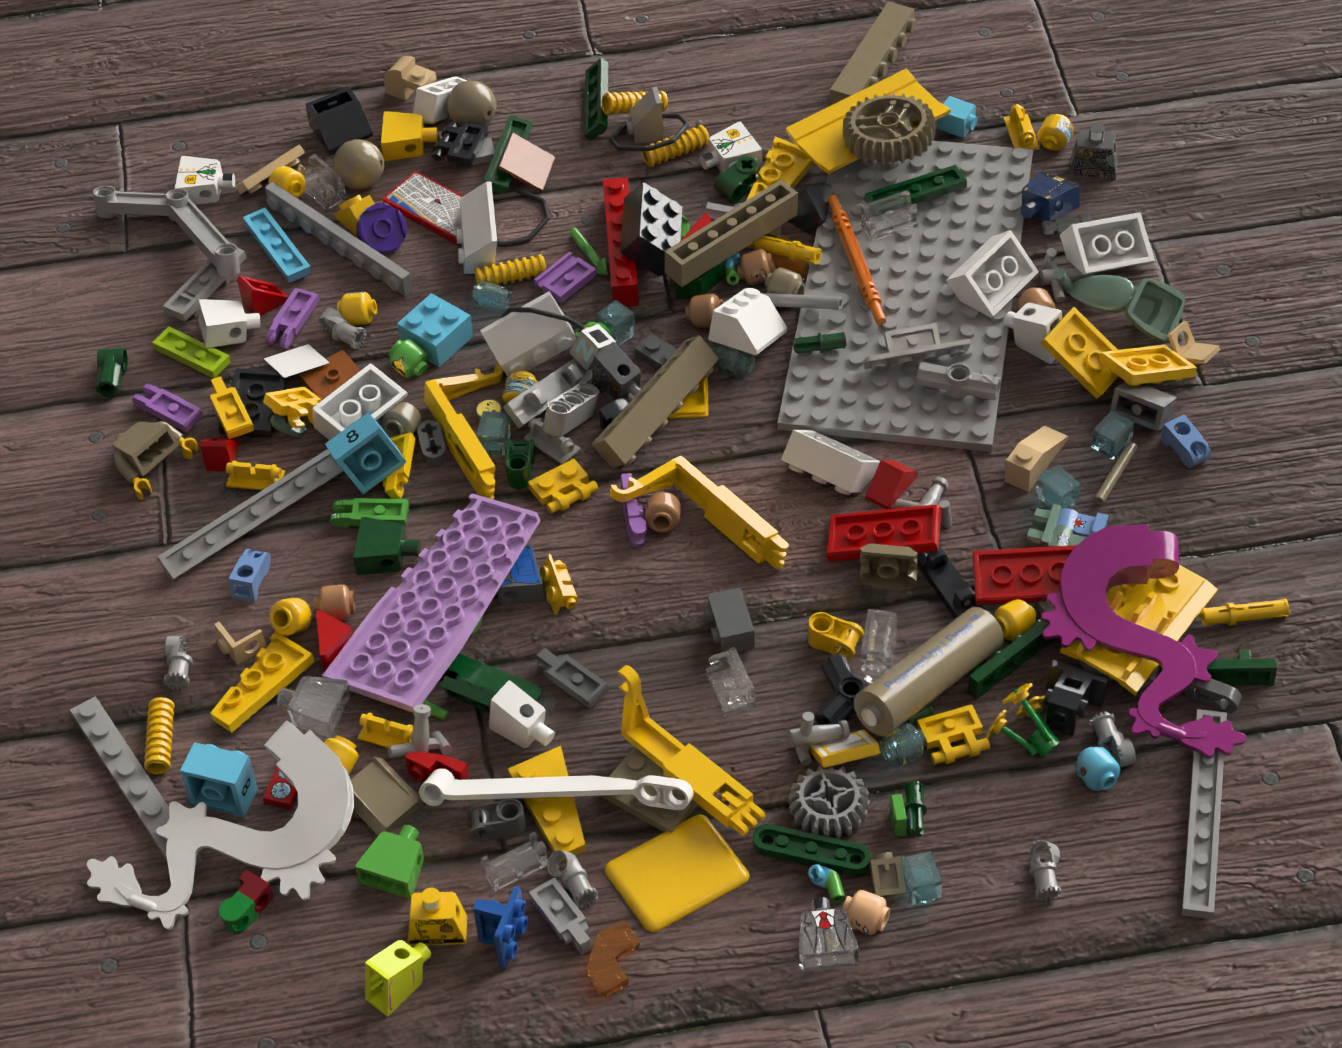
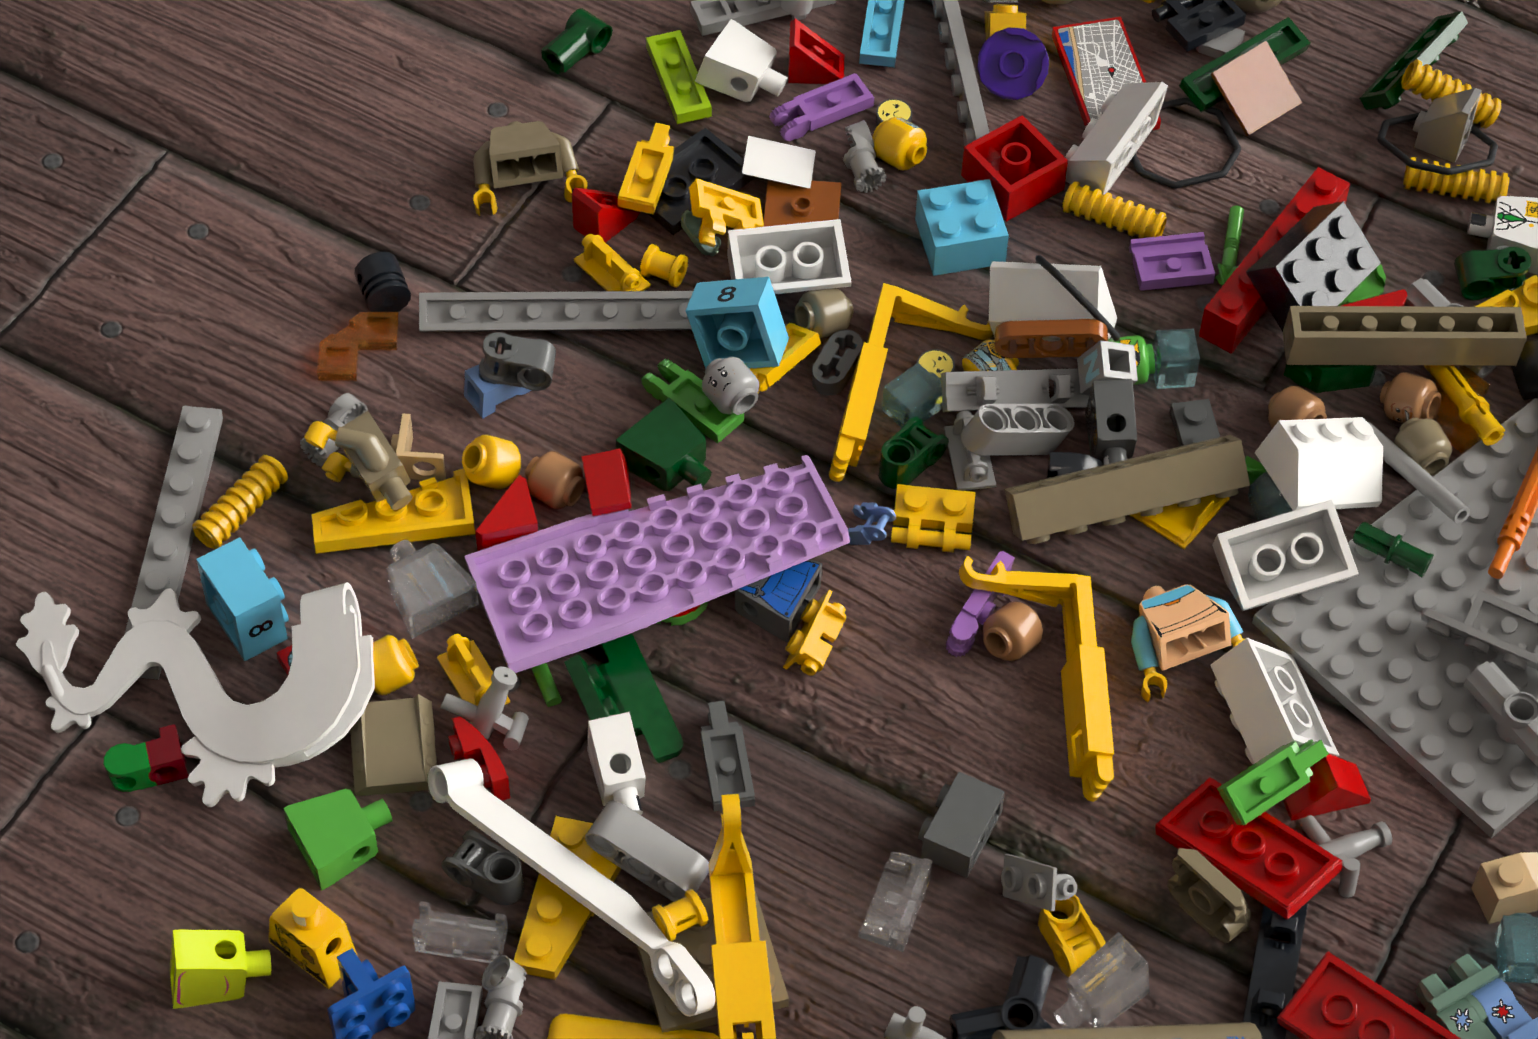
camera: 35 degrees right, 5 degrees up
(128, 567) = (382, 283): none -> black piece
(138, 602) = (365, 331): none -> clear orange tile
(168, 407) = (597, 128): medium lavender hinge -> none
(222, 655) = (368, 458): none -> dark tan torso
(260, 550) = (521, 362): none -> dark grey piece
(284, 454) = (664, 265): none -> yellow bush
(334, 295) = (893, 108): none -> light yellow tile
(370, 581) = (607, 482): none -> red slope
(392, 487) = (730, 385): none -> light grey head
(408, 358) = (901, 241): bright green head -> none
(437, 274) = (1019, 165): none -> red brick
(491, 296) = (1064, 229): clear light blue brick -> none
(528, 361) = (1014, 336): none -> dark orange beam
(537, 500) = (866, 533): none -> medium blue piece
(579, 749) = (646, 851): none -> light grey beam
(630, 763) = (680, 915): none -> yellow bush
(731, 270) = (1371, 390): arm -> none
(748, 453) = (1177, 629): none -> light nougat torso
(769, 381) = (1285, 555): none -> white slope
(796, 621) = (1035, 883): none -> light grey hinge
(868, 490) = (1271, 779): none -> bright green hinge

